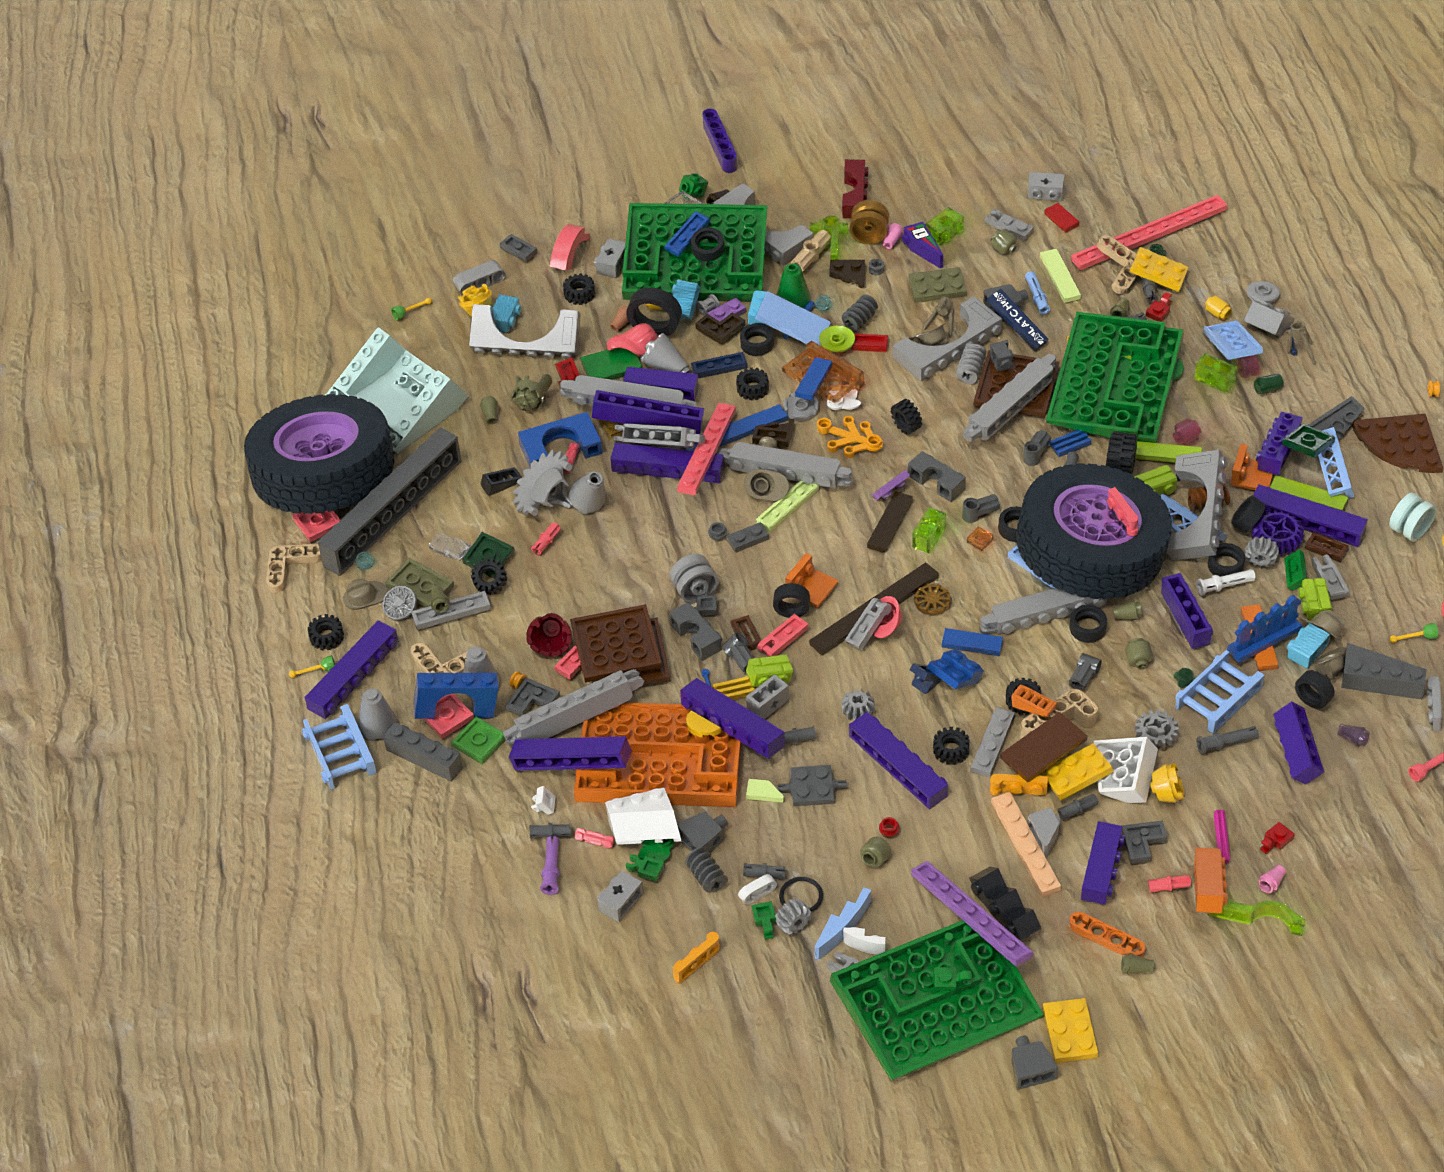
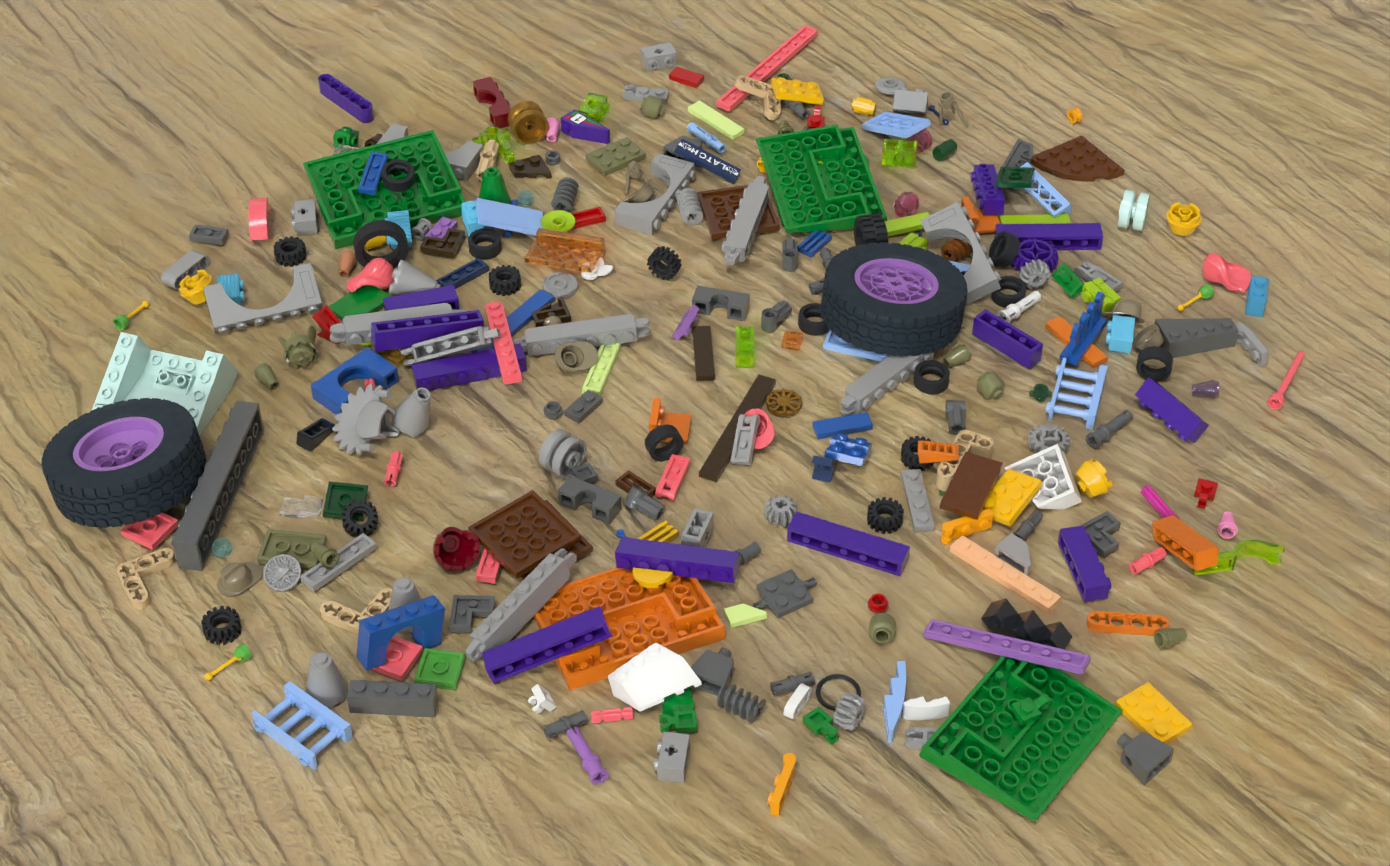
camera: 30 degrees left, 5 degrees down
(351, 669) = (271, 650): dark purple brick -> none
(516, 679) = (447, 600): light orange bush -> none
(763, 668) = (679, 508): lime brick -> none
(813, 378) = (561, 257): blue tile -> none
(870, 442) = (621, 295): light orange plant -> none
(1001, 355) = (714, 191): dark grey brick -> none
(1123, 511) = (918, 270): coral plate -> none
(1326, 547) = (1077, 256): reddish brown tile -> none

